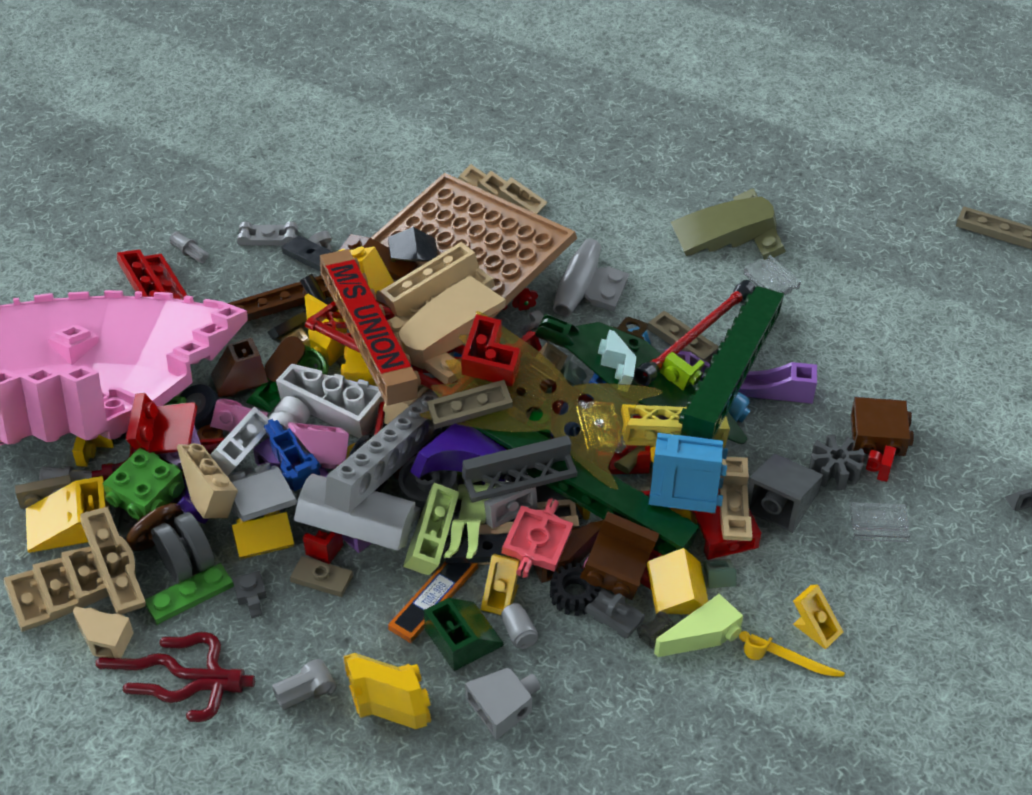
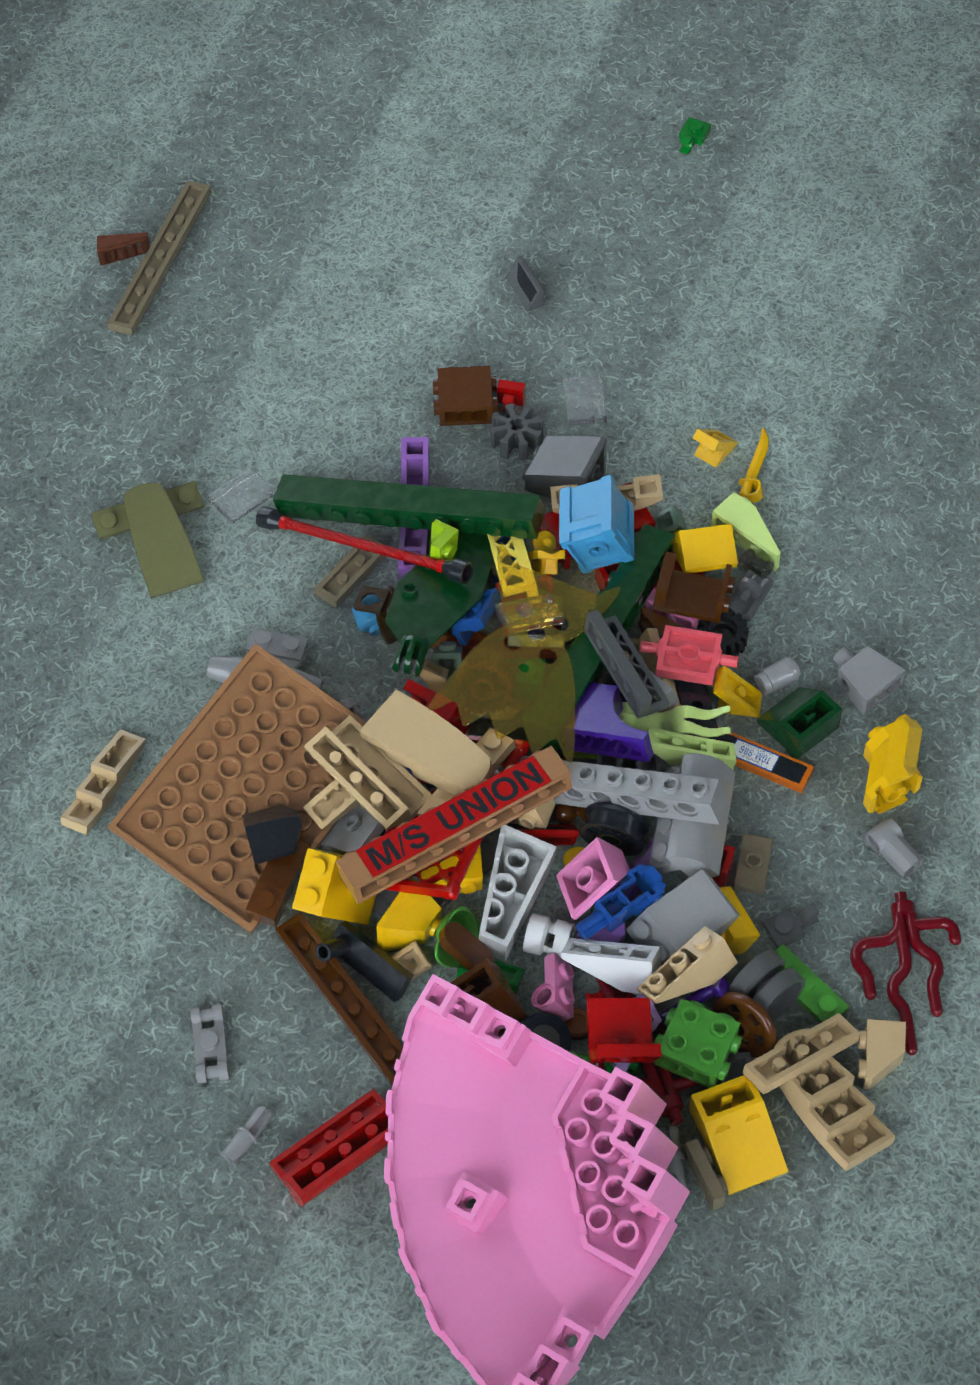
camera: 95 degrees left, 10 degrees up
(305, 251) = (246, 987): black tile -> none
(322, 238) = (224, 971): light grey tile -> none
(469, 404) = (558, 708): dark tan plate -> none
(485, 356) = (499, 688): red brick -> none
(618, 356) = (452, 587): light aqua slope -> none

